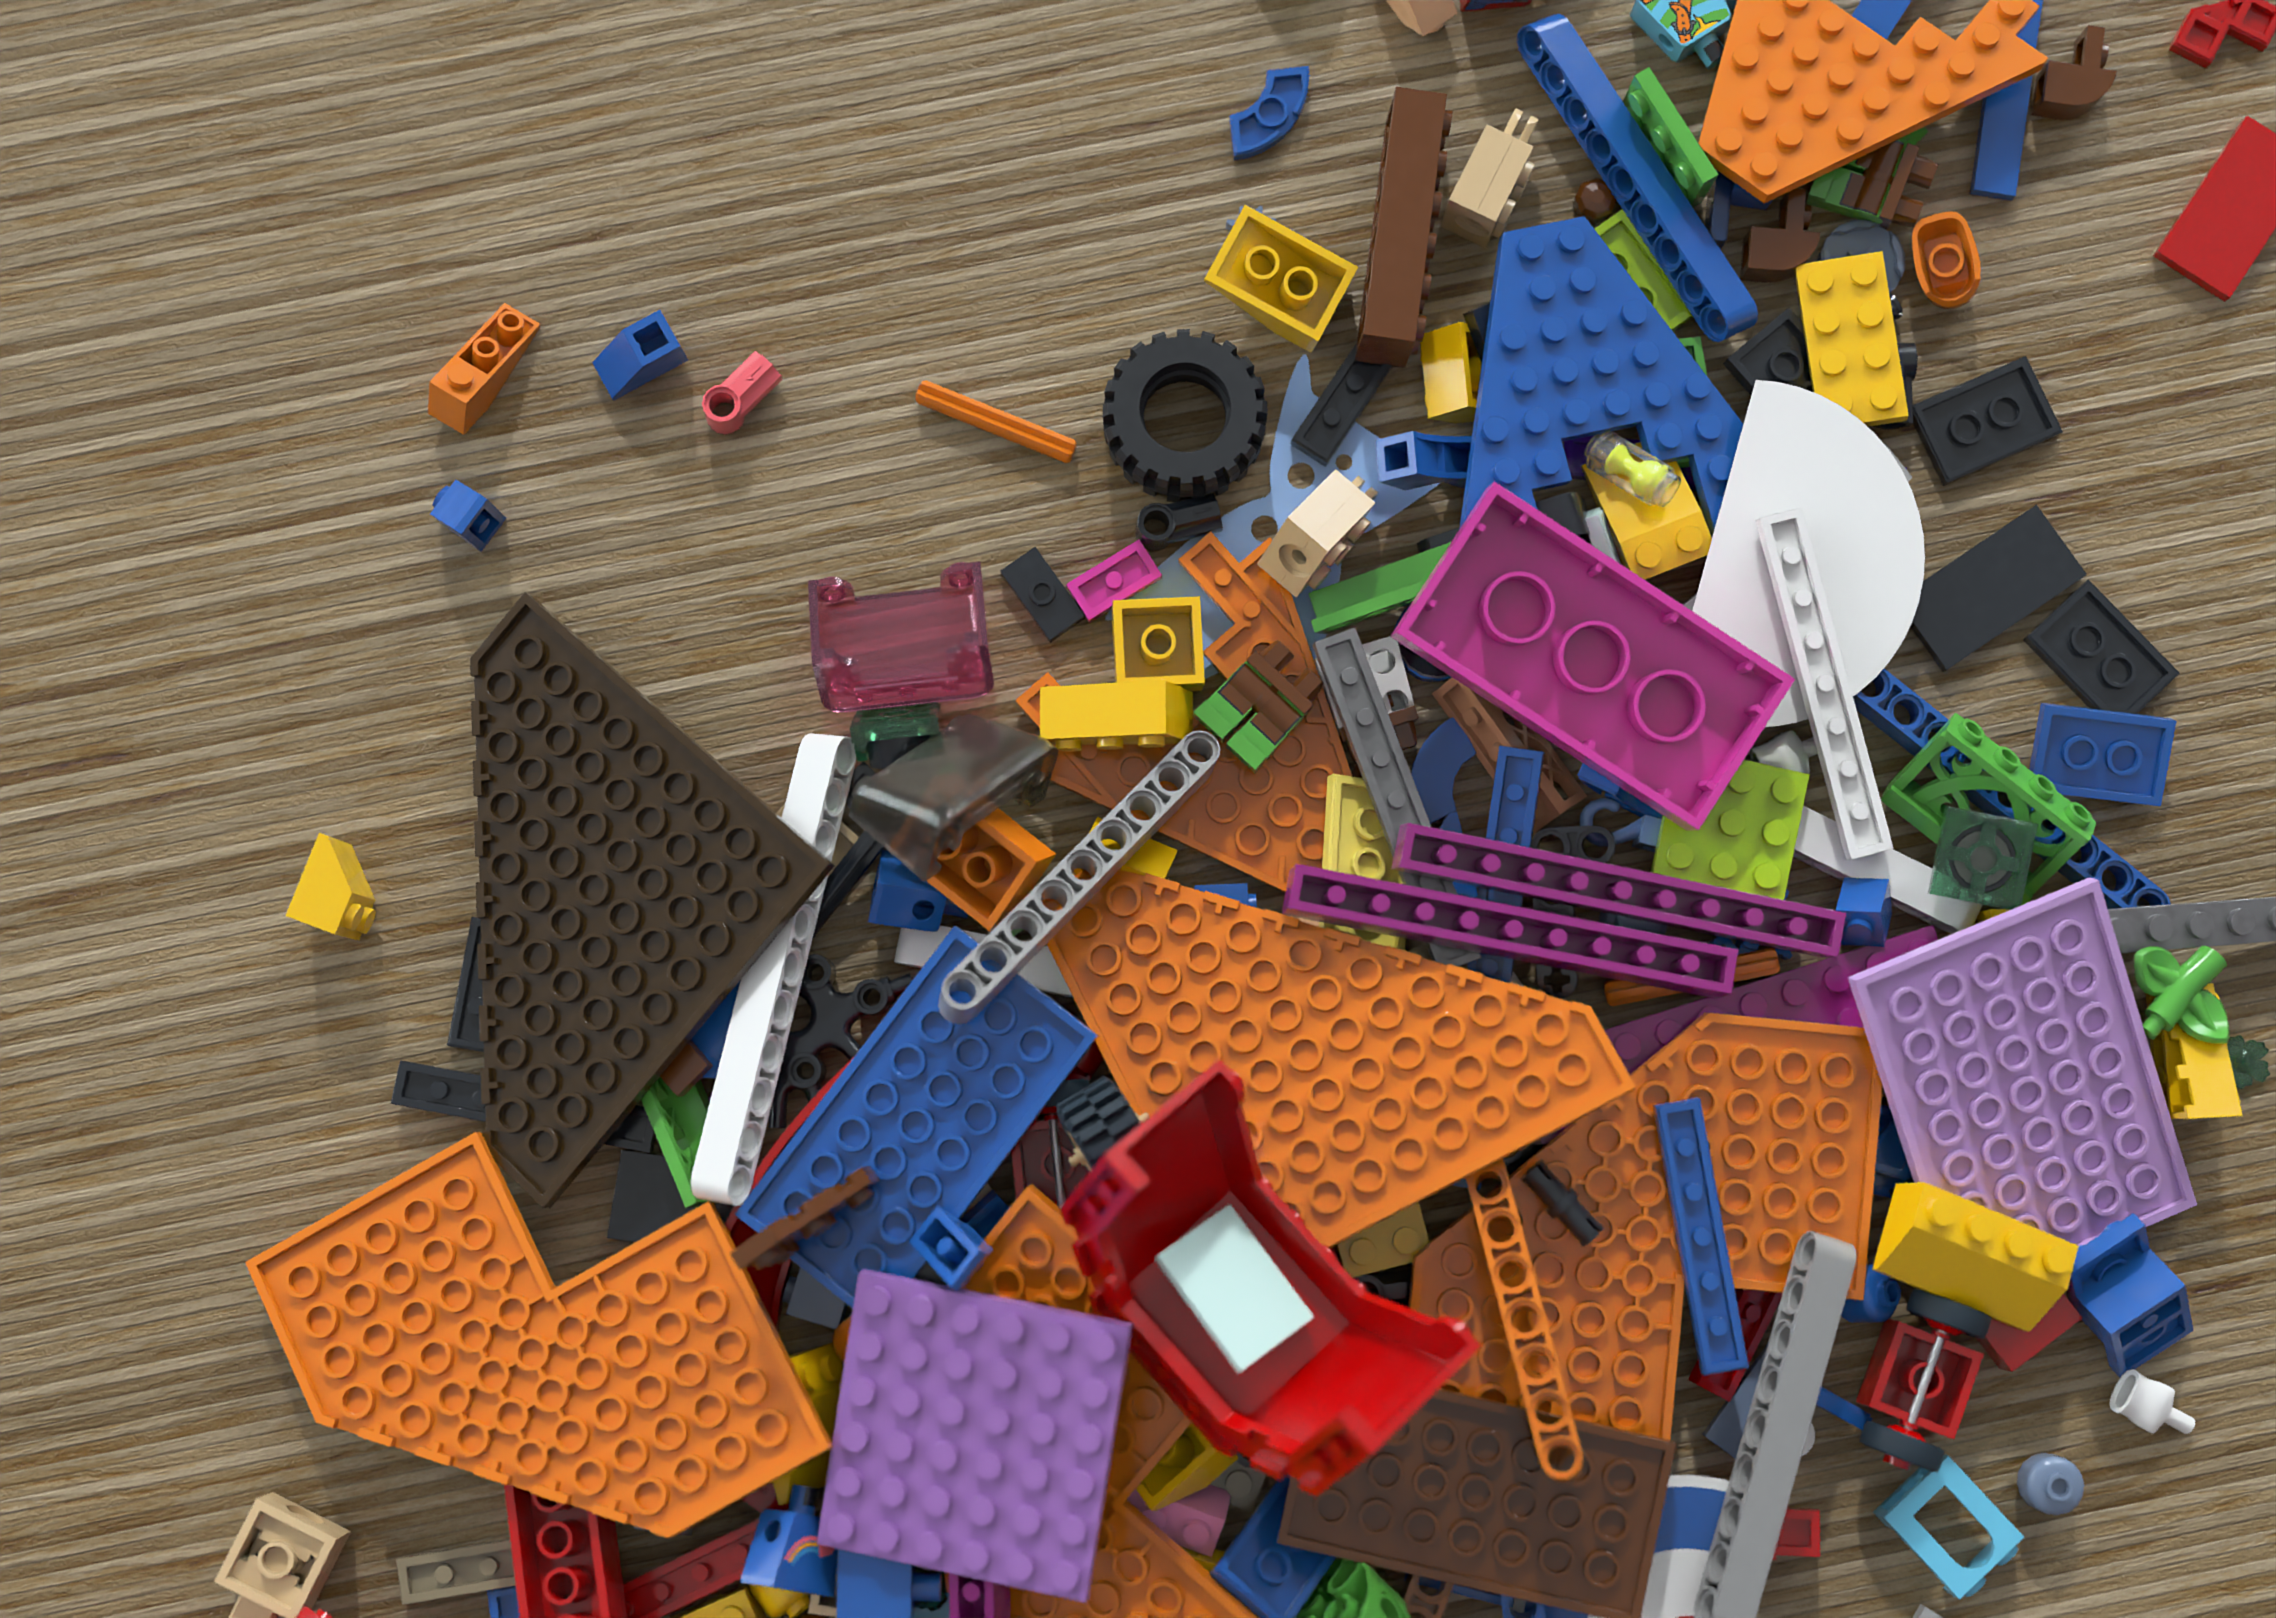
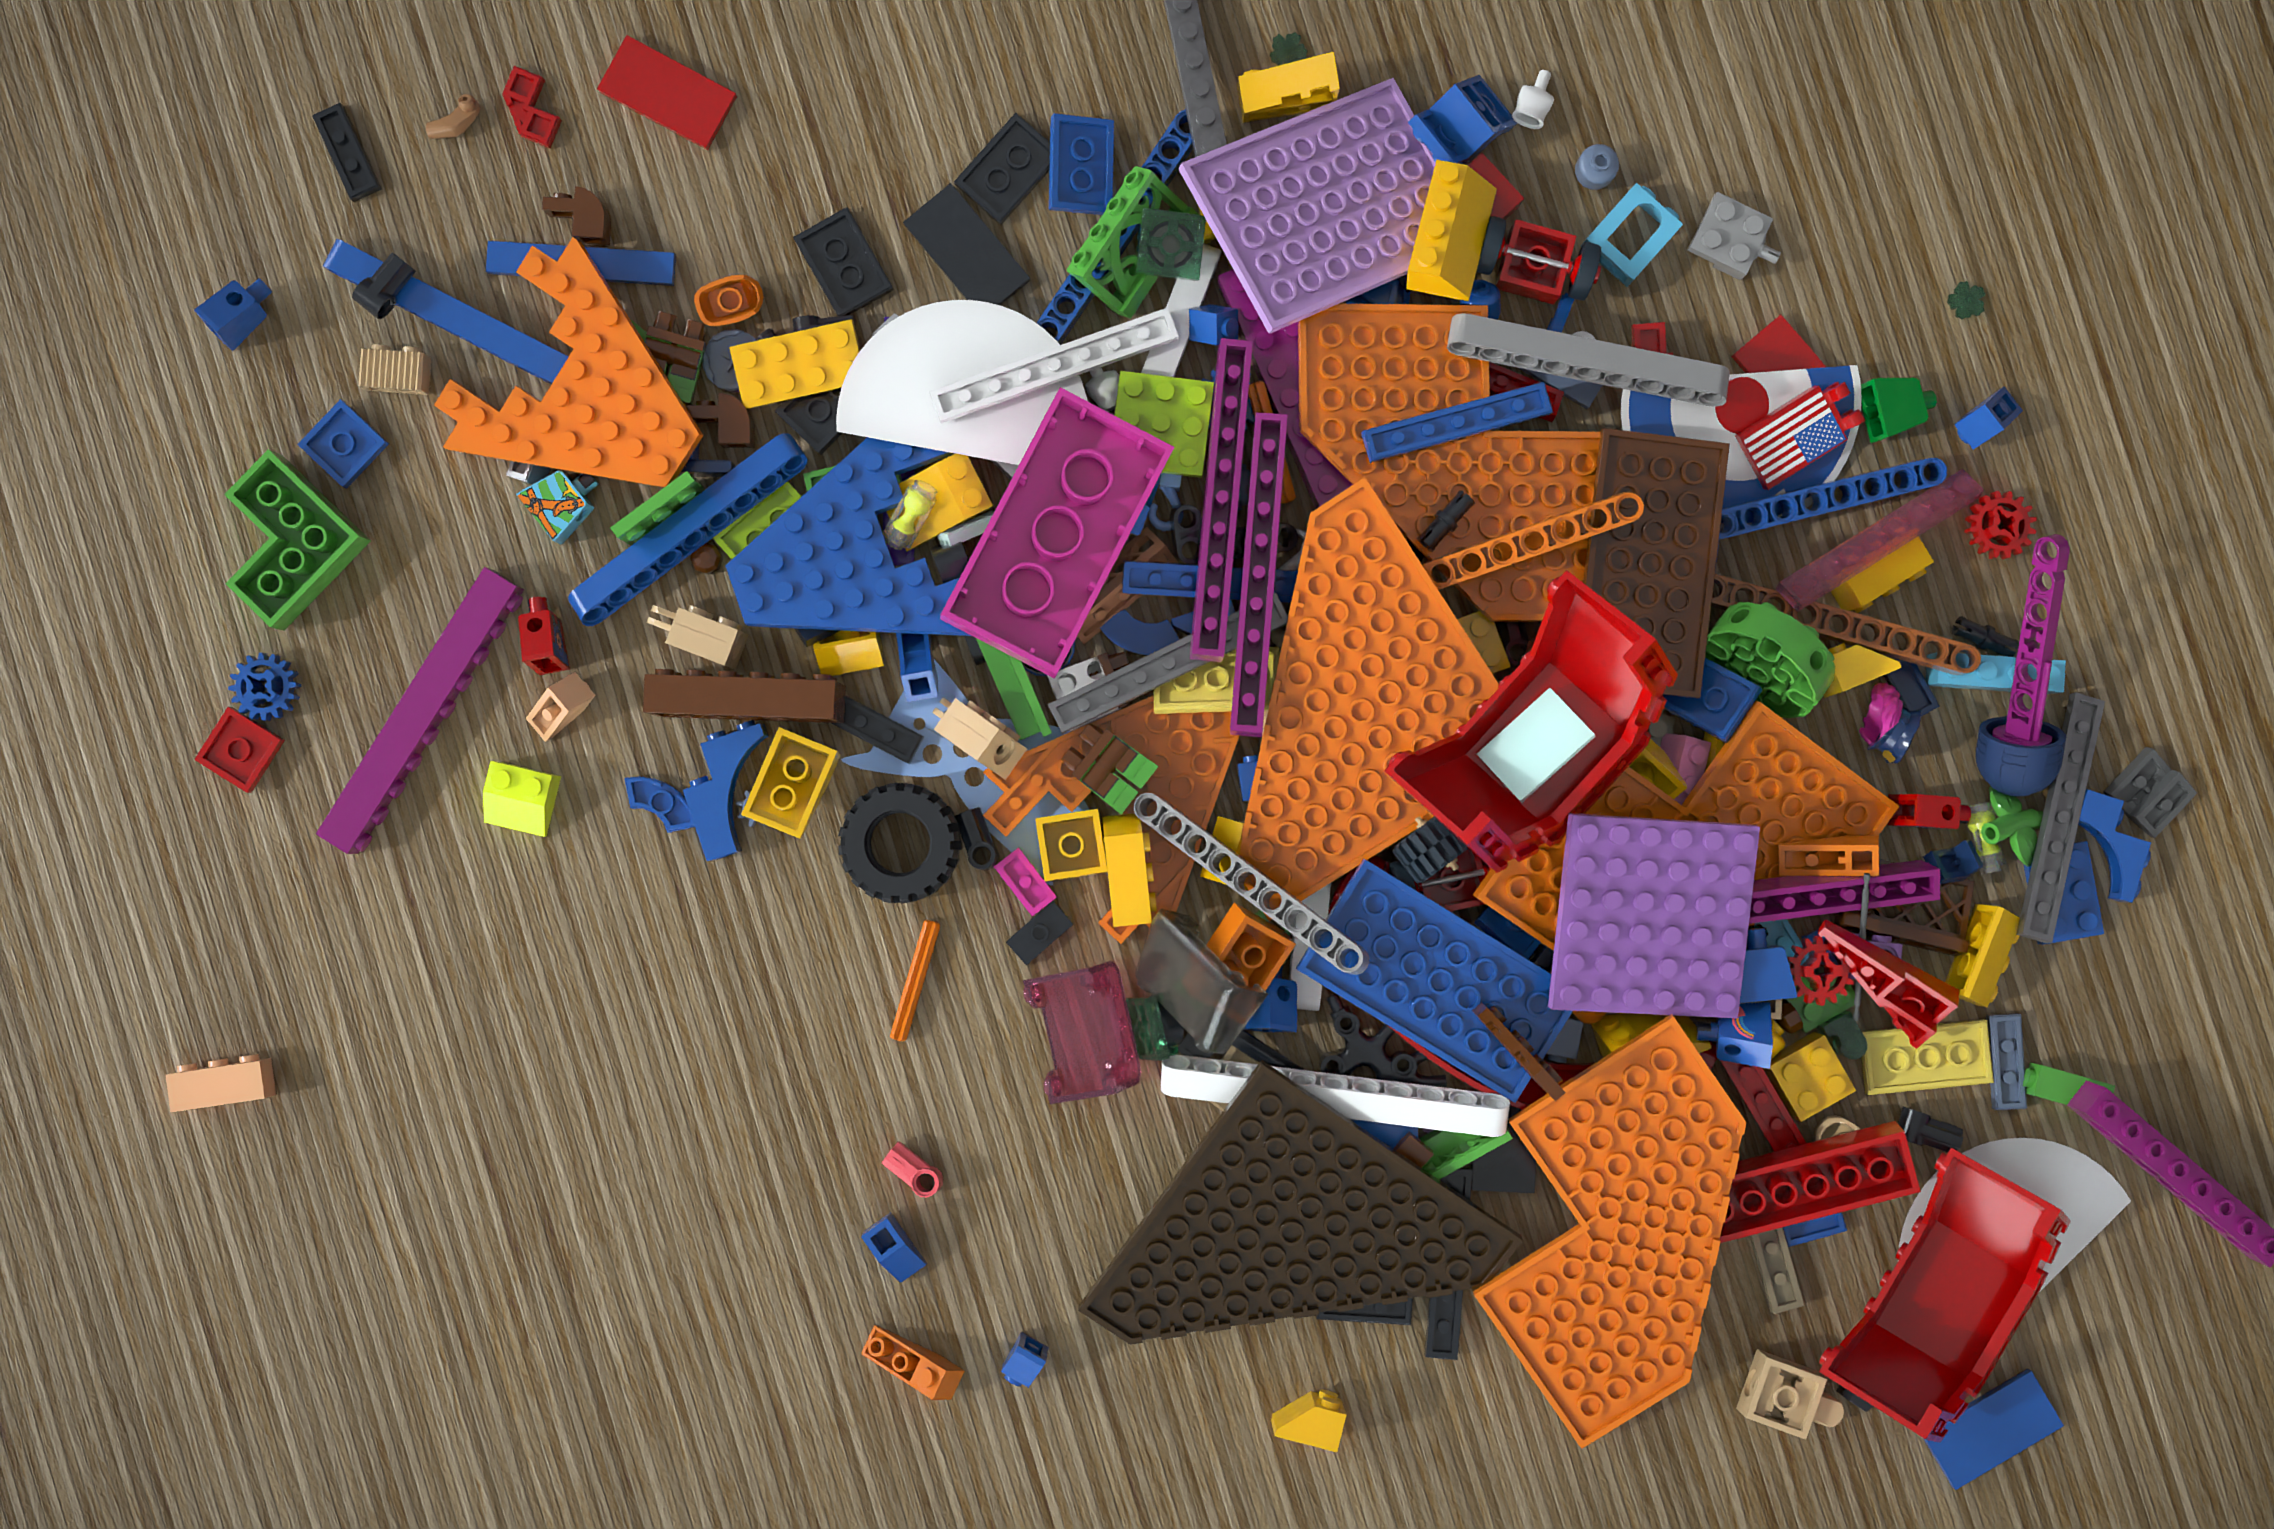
camera: 95 degrees left, 5 degrees up
(951, 1247) = (1526, 946): blue slope -> none
(1267, 177) = (713, 800): none -> blue arch
(2181, 993) = (1250, 98): bright green plant -> none

